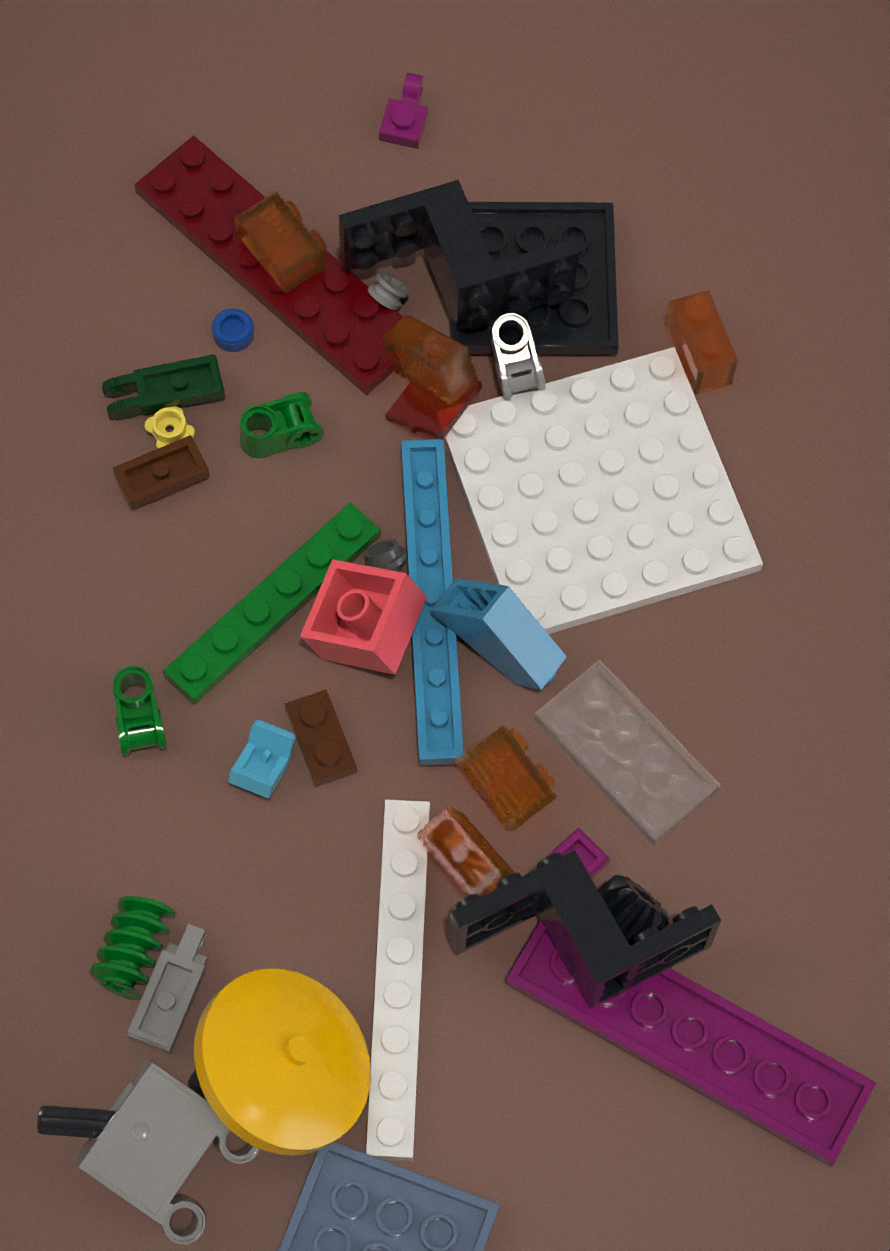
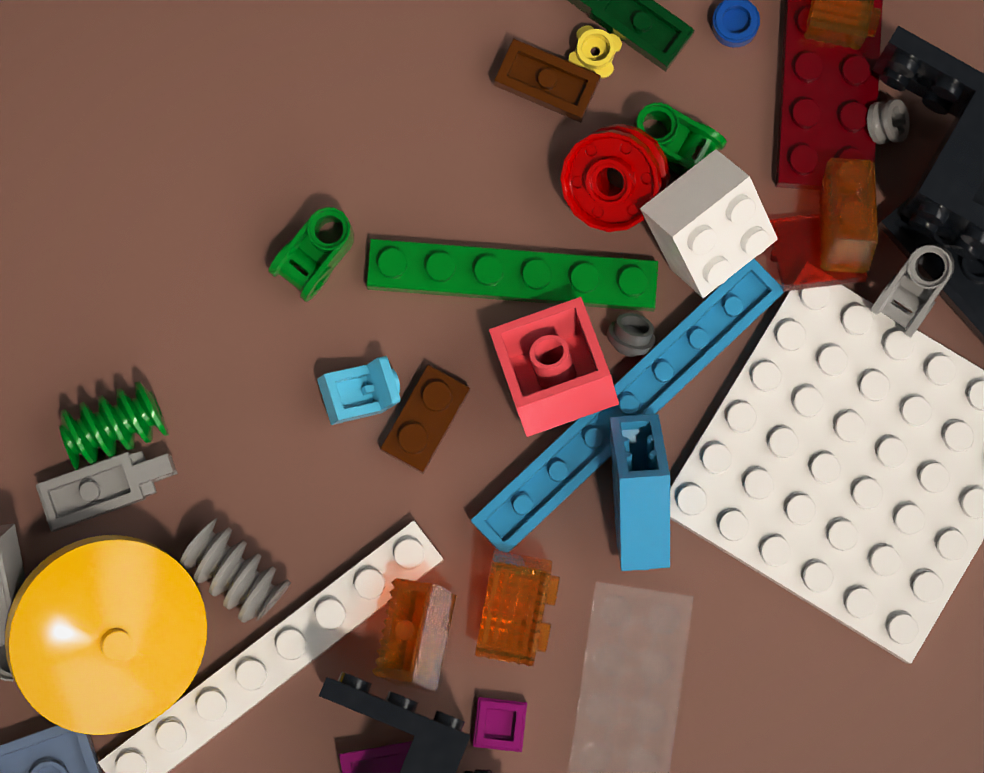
camera: 50 degrees right, 15 degrees up
(277, 503) = (586, 181): none -> red wheel
(316, 945) = (232, 573): none -> light grey piece
(357, 442) = (709, 223): none -> white brick

